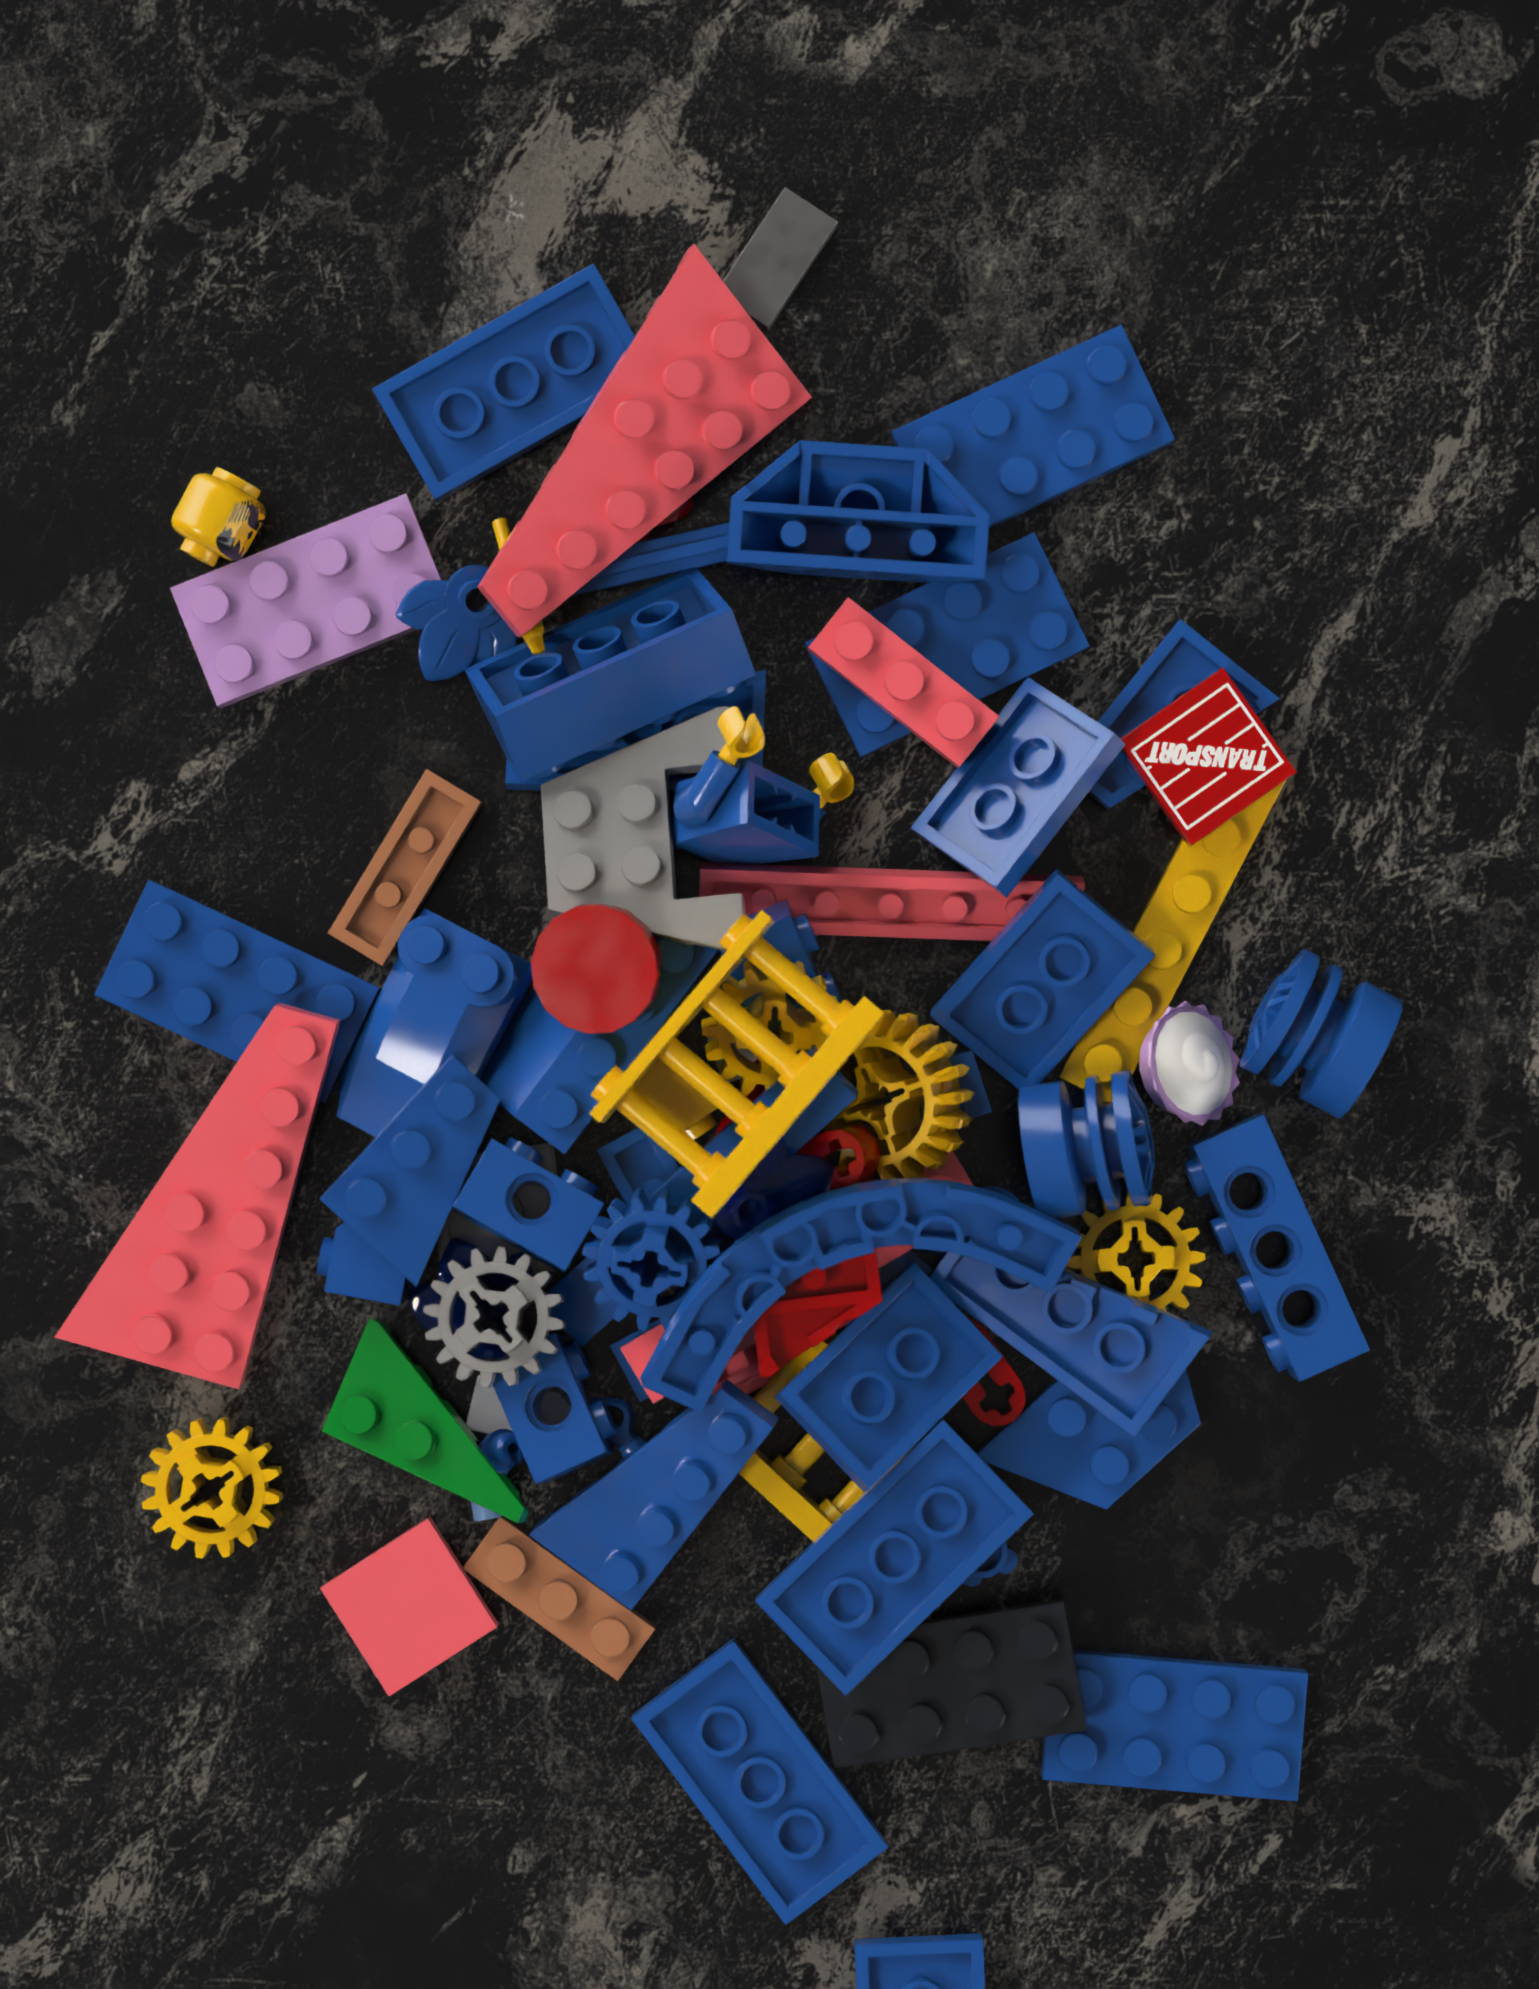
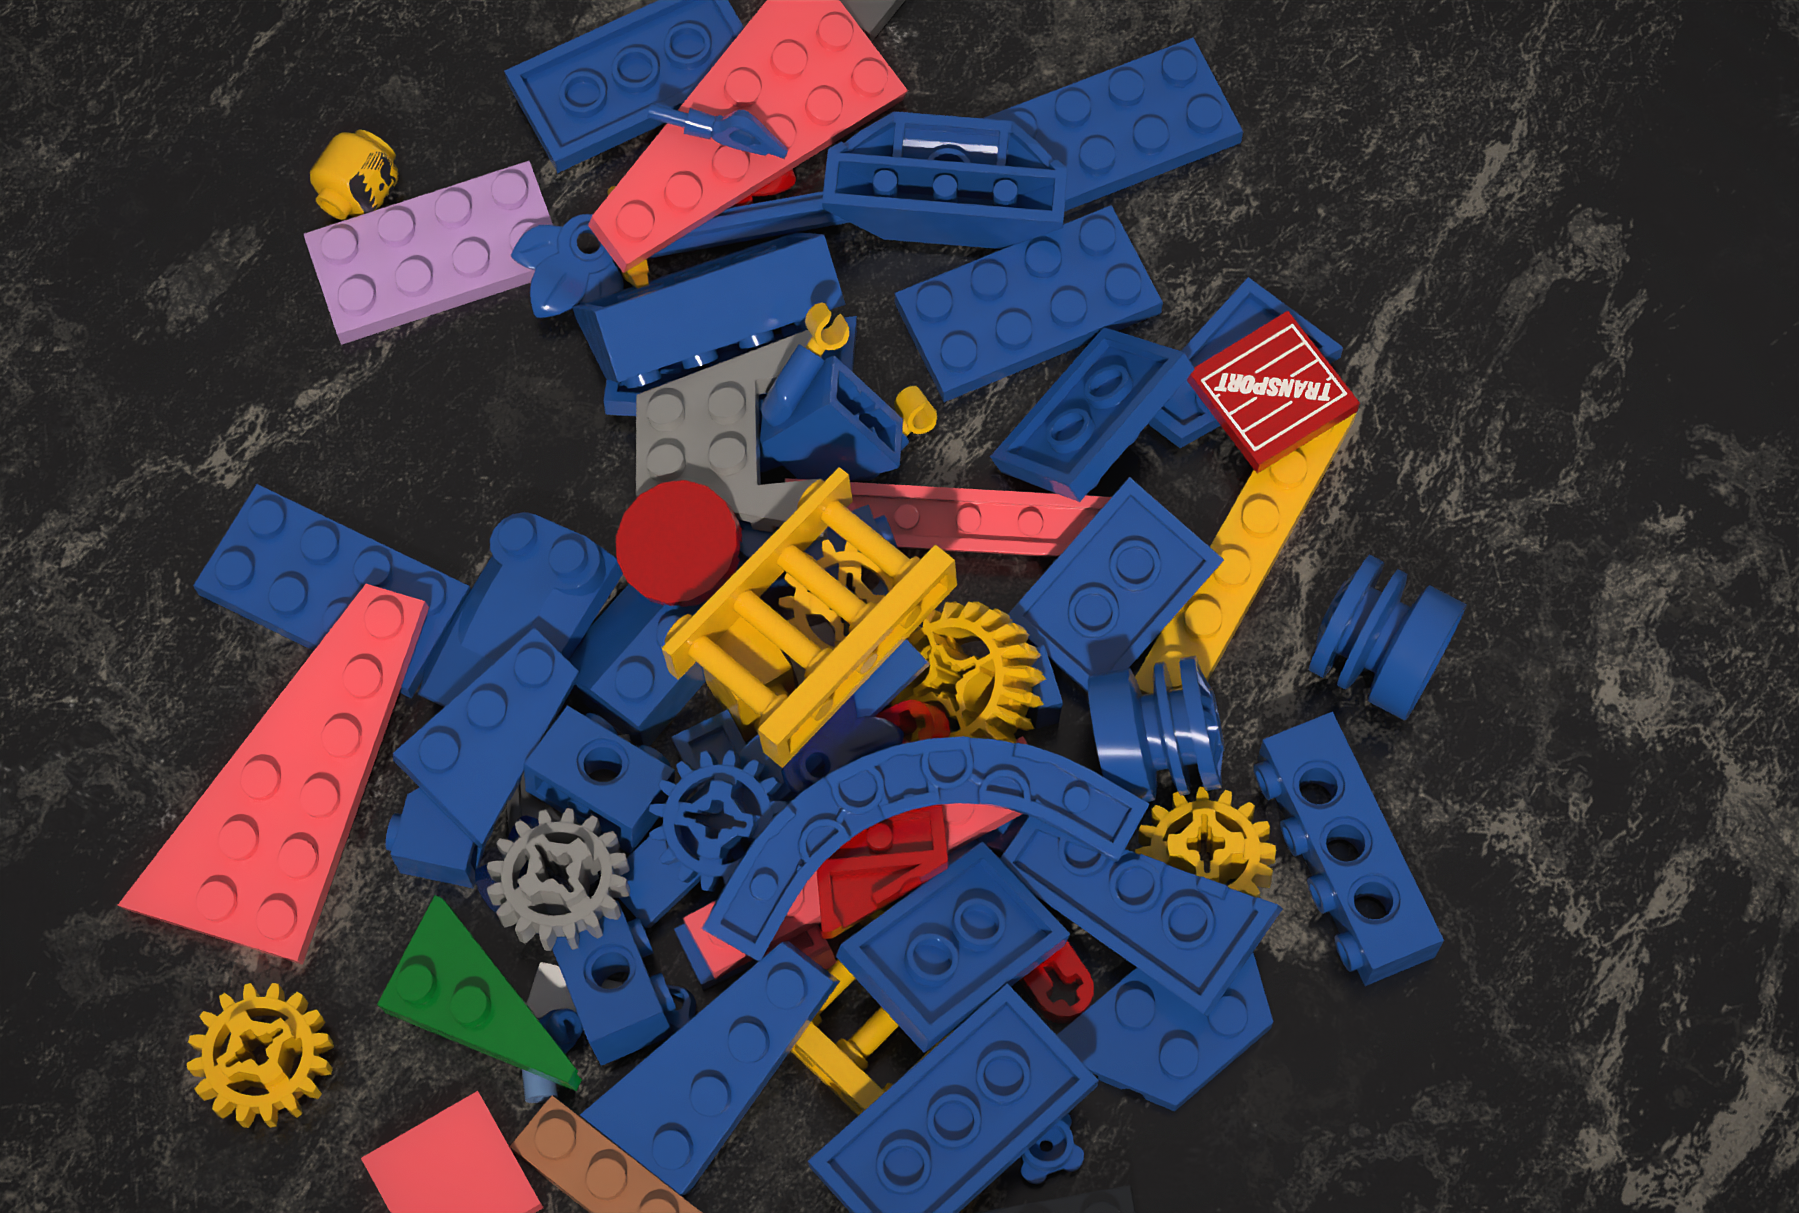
camera: 10 degrees right, 20 degrees down
(405, 867) = (503, 478): nougat plate -> none
(627, 476) = (735, 130): none -> blue hand
(903, 682) = (985, 321): coral plate -> none
(1189, 1064) = (1258, 669): white piece -> none

